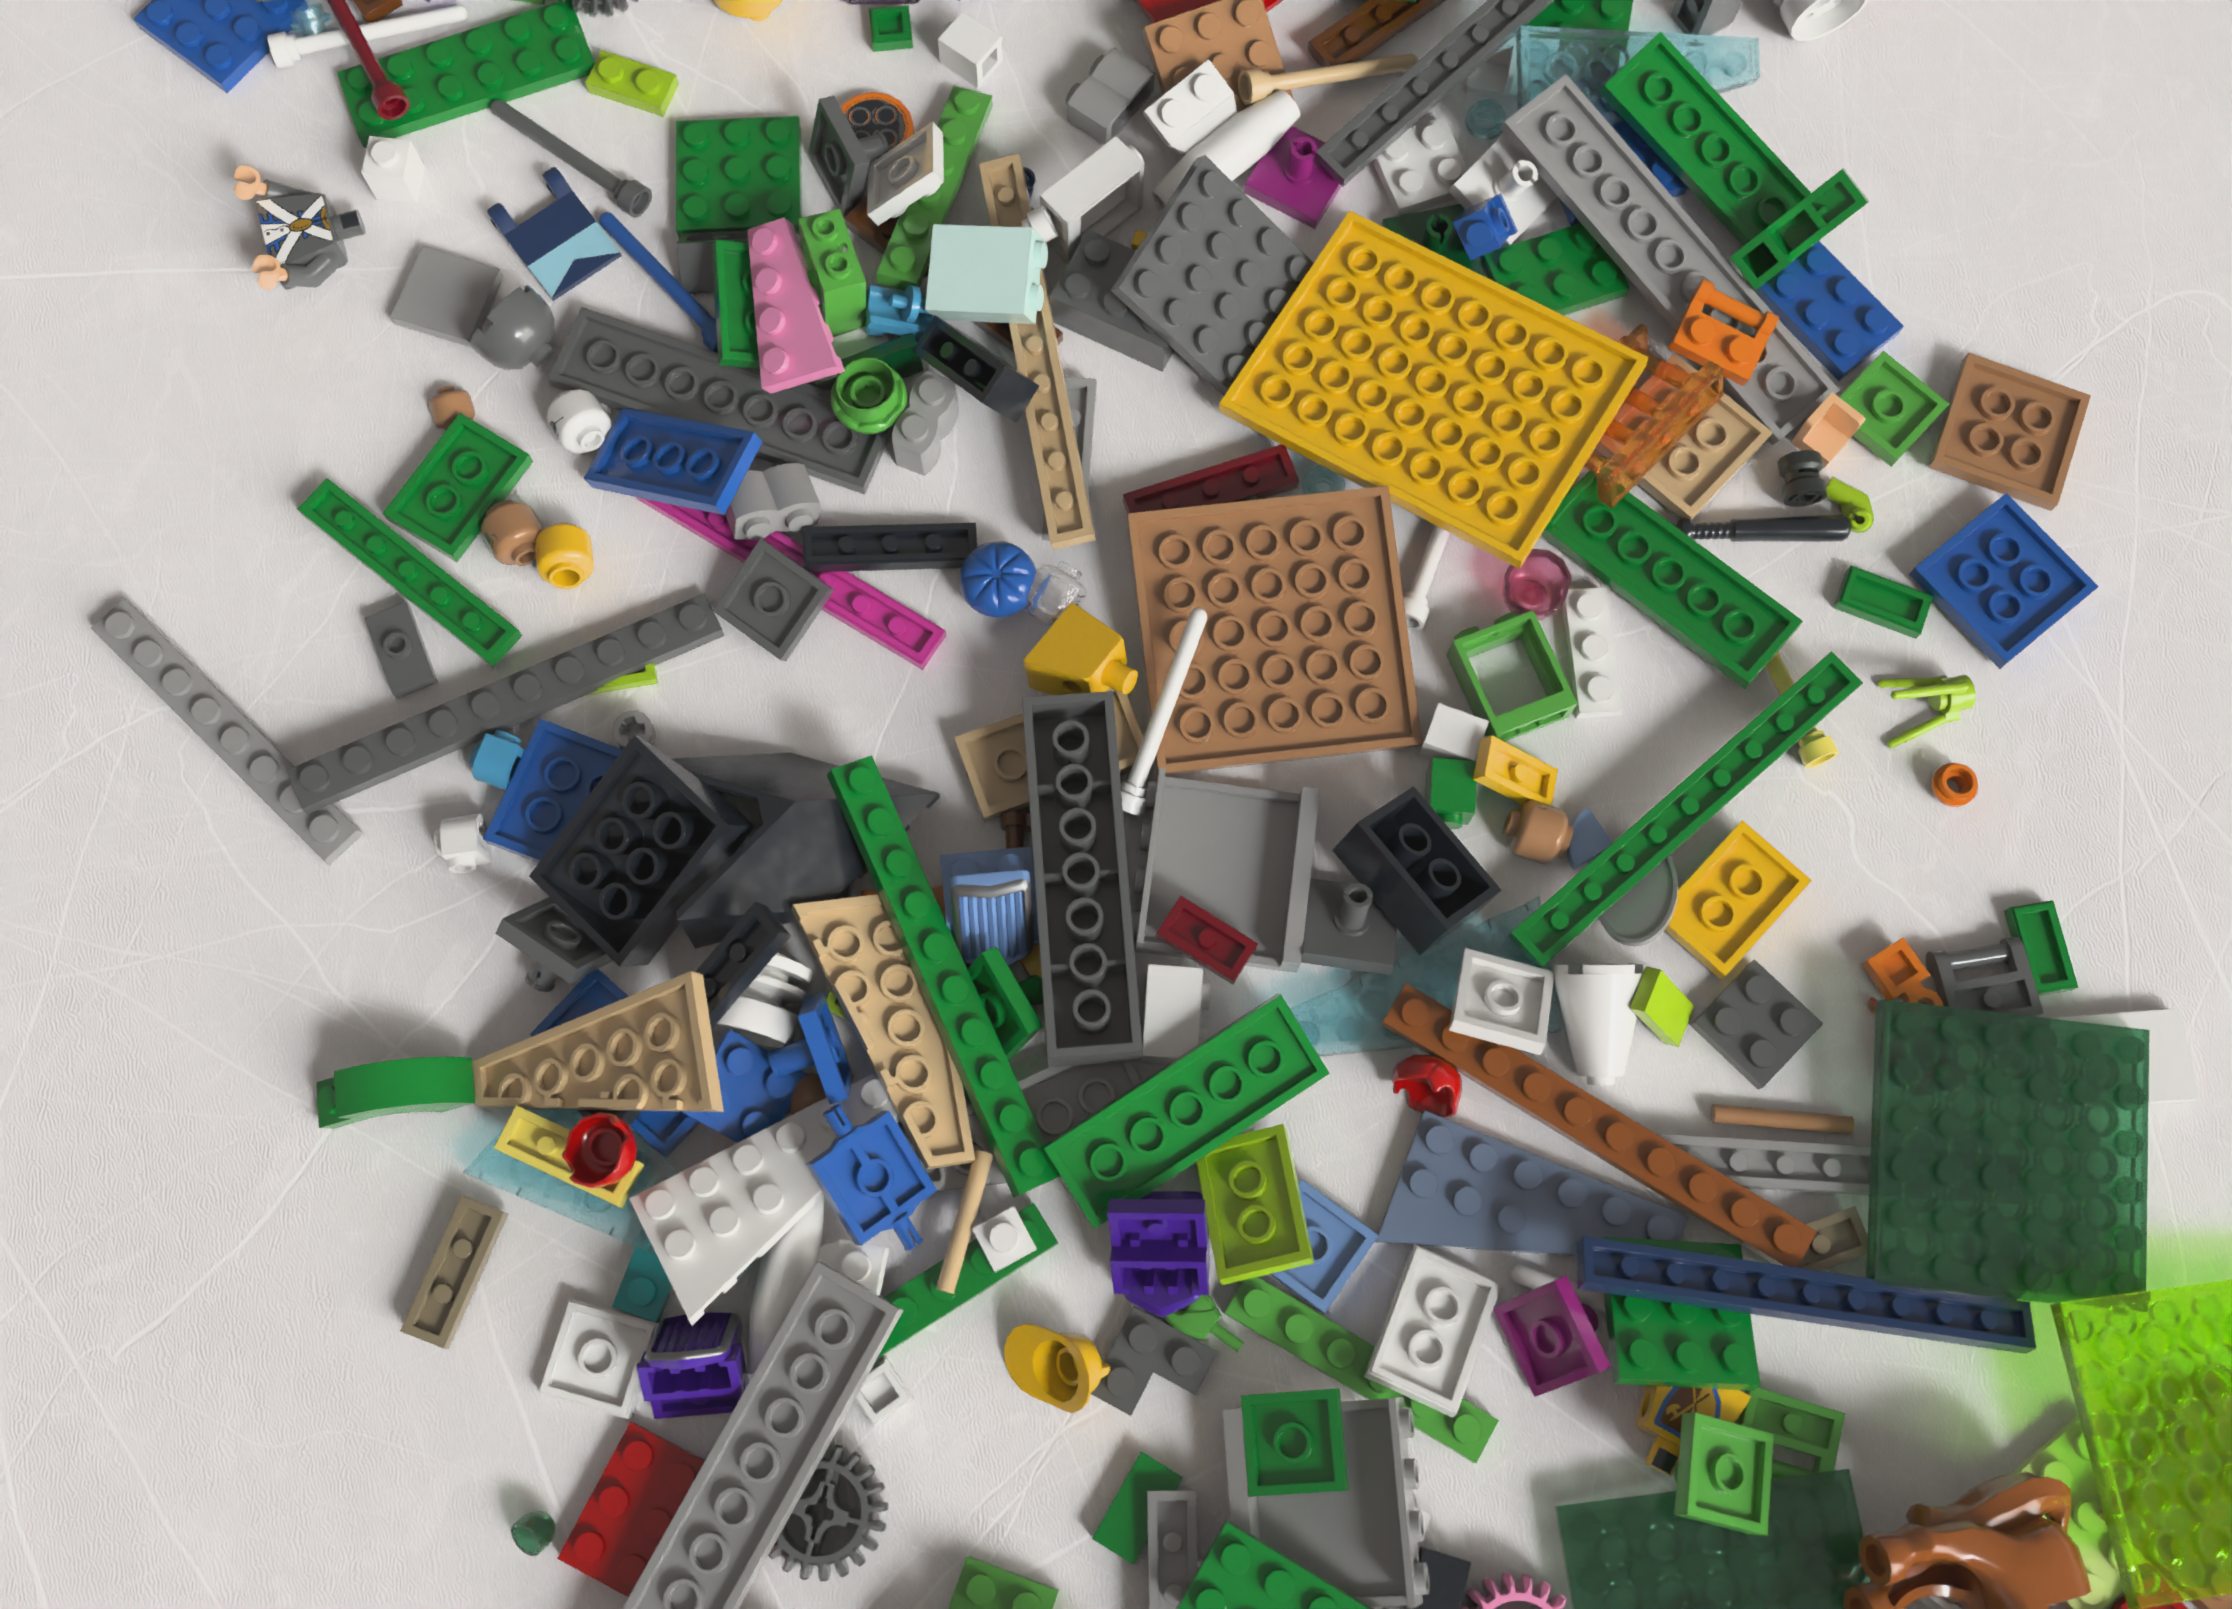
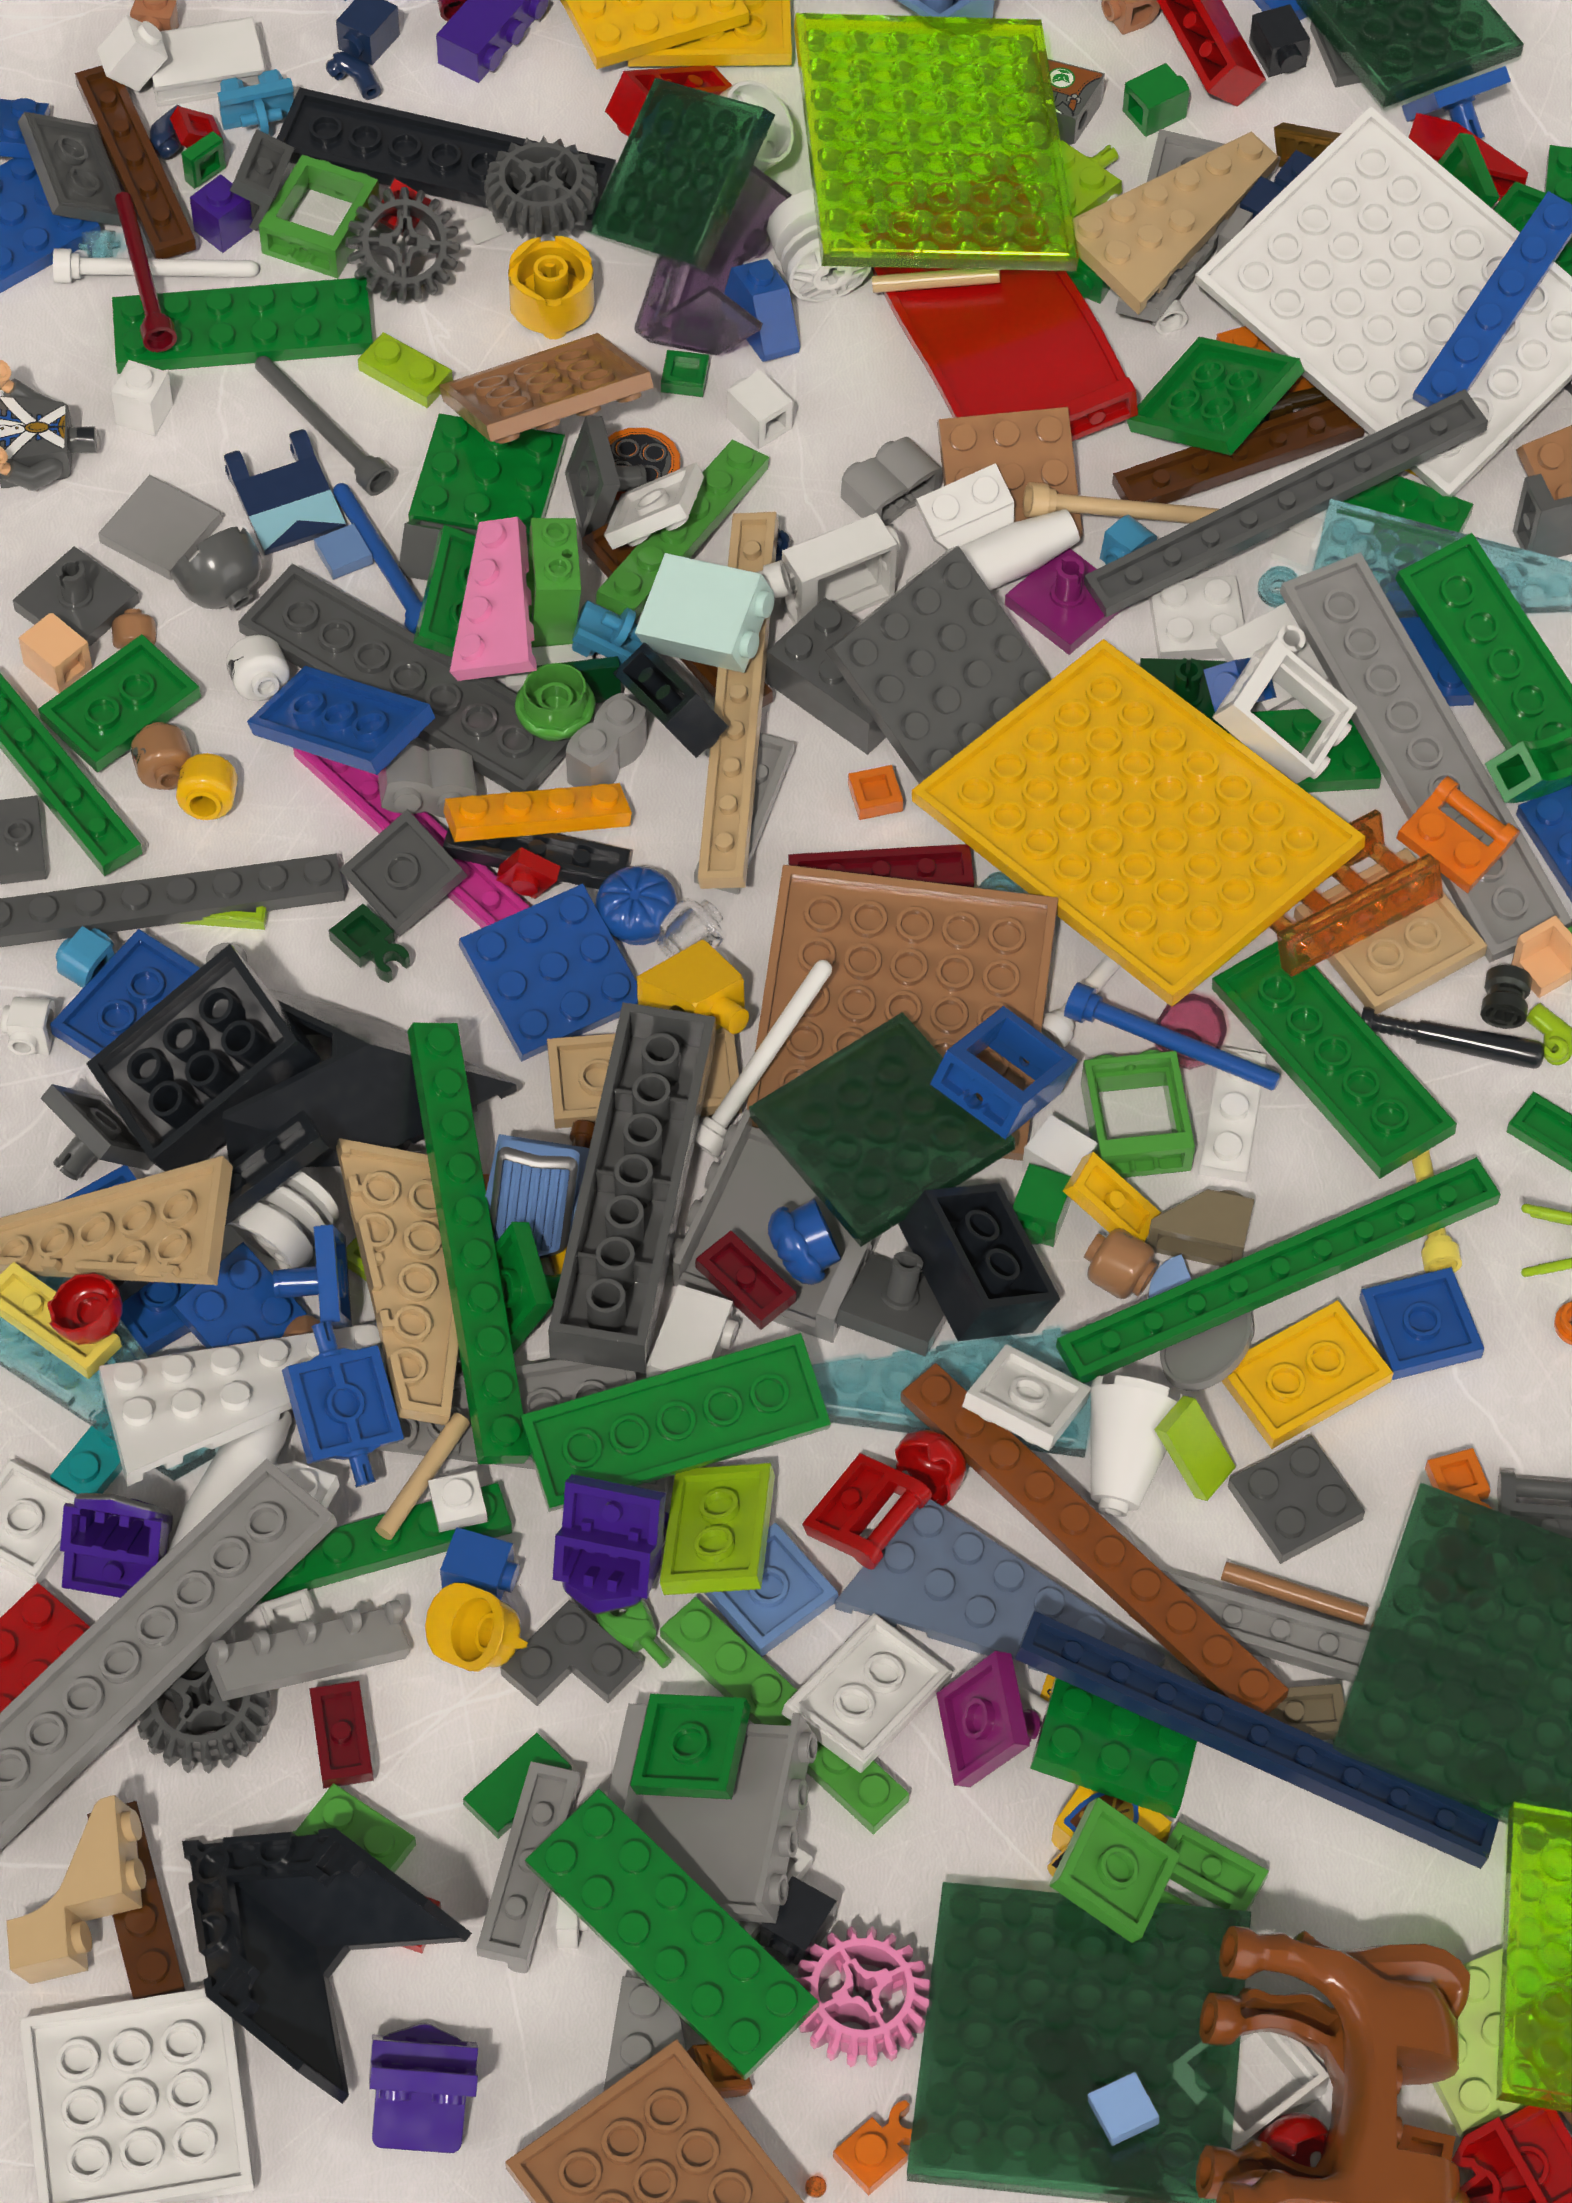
camera: 15 degrees right, 15 degrees down
(382, 450) = (55, 652): none -> light nougat panel
(388, 390) = (78, 594): none -> dark grey tile
(625, 281) = (343, 551): none -> medium blue tile
(757, 673) = (368, 938): none -> dark green plate
(771, 76) = (546, 388): none -> medium nougat plate
(880, 508) = (537, 812): none -> light orange plate
(889, 573) = (528, 873): none -> red plate
(907, 1436) = (307, 1652): none -> light grey hinge
(938, 666) = (550, 971): none -> blue plate
(960, 1503) = (341, 1734): none -> dark red plate
(1042, 1297) = (480, 1563): none -> blue brick
(1183, 410) = (875, 792): none -> orange plate
(1250, 890) = (803, 1242): none -> blue piece
(1292, 760) = (875, 1130): none -> clear green plate
(1339, 108) = (1124, 538): none -> dark azure plate
(1367, 1137) = (856, 1501): none -> red plate
(1402, 715) = (1003, 1103): none -> blue window
(1441, 584) = (1087, 1005): none -> blue piece
(1506, 235) = (1304, 685): none -> white window
(1608, 777) = (1204, 1228): none -> dark tan slope
(1819, 821) = (1421, 1323): none -> blue plate

